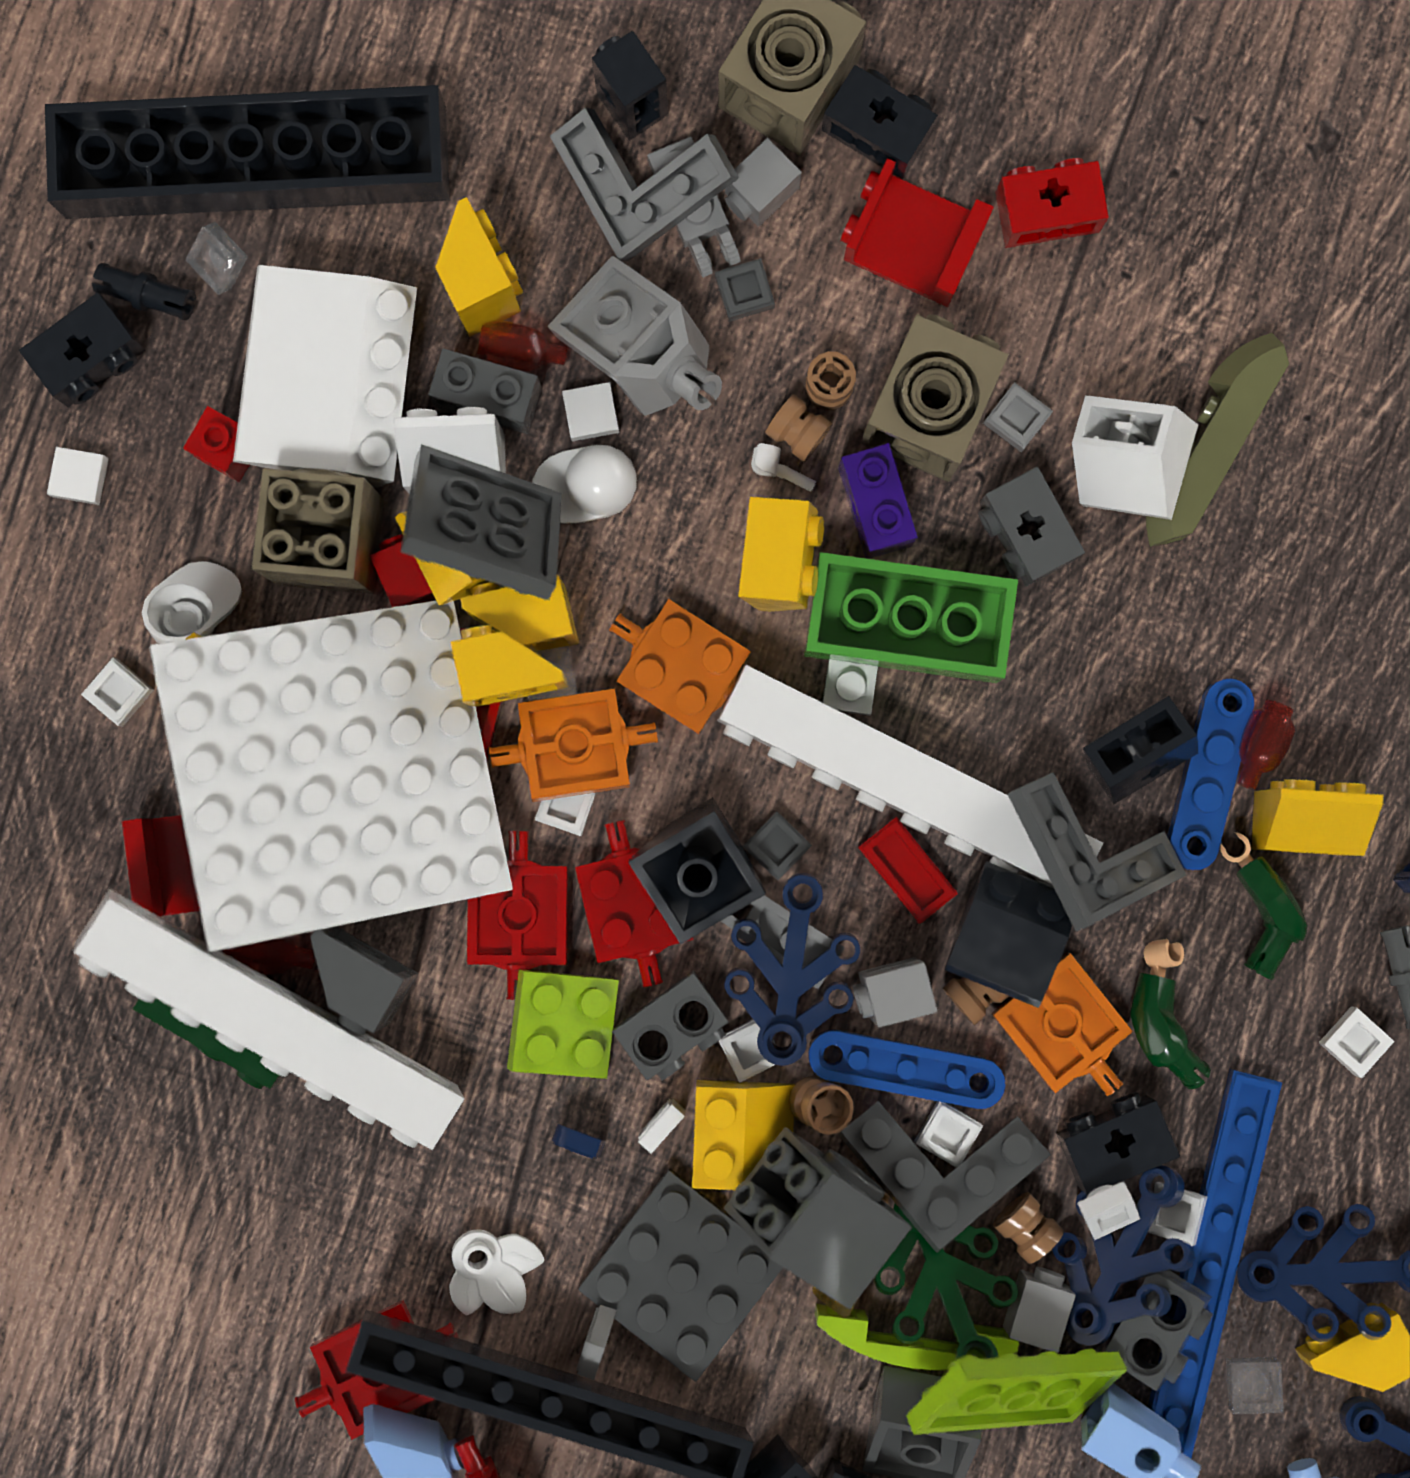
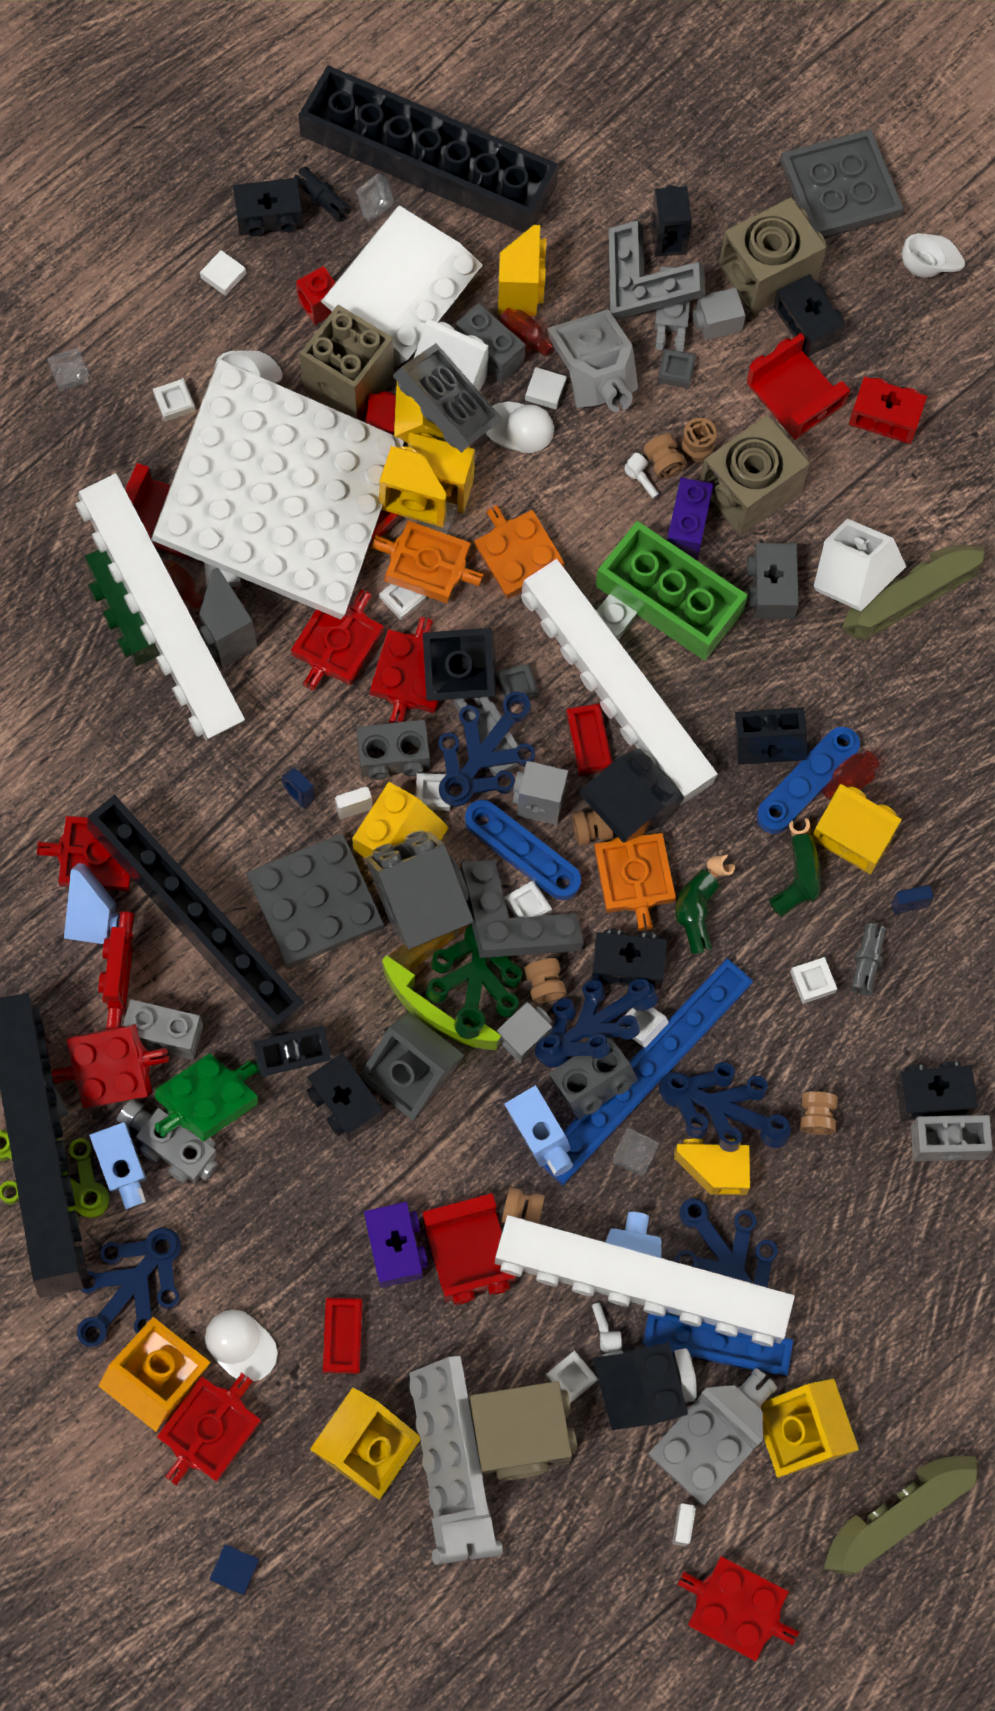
camera: 20 degrees right, 15 degrees down
(497, 1277) = (202, 840): white plate -> none
(562, 1024) = (328, 714): lime plate -> none
(595, 1342) = (241, 903): light grey tile -> none
(779, 554) = (610, 509): yellow slope -> none
(831, 1110) = (463, 835): medium nougat wheel -> none
(1015, 1391) = (481, 1048): lime plate -> none
(1018, 417) = (802, 519): light grey tile -> none
(1083, 884) = (689, 778): dark grey plate -> none
(1108, 1209) = (600, 985): white plate -> none

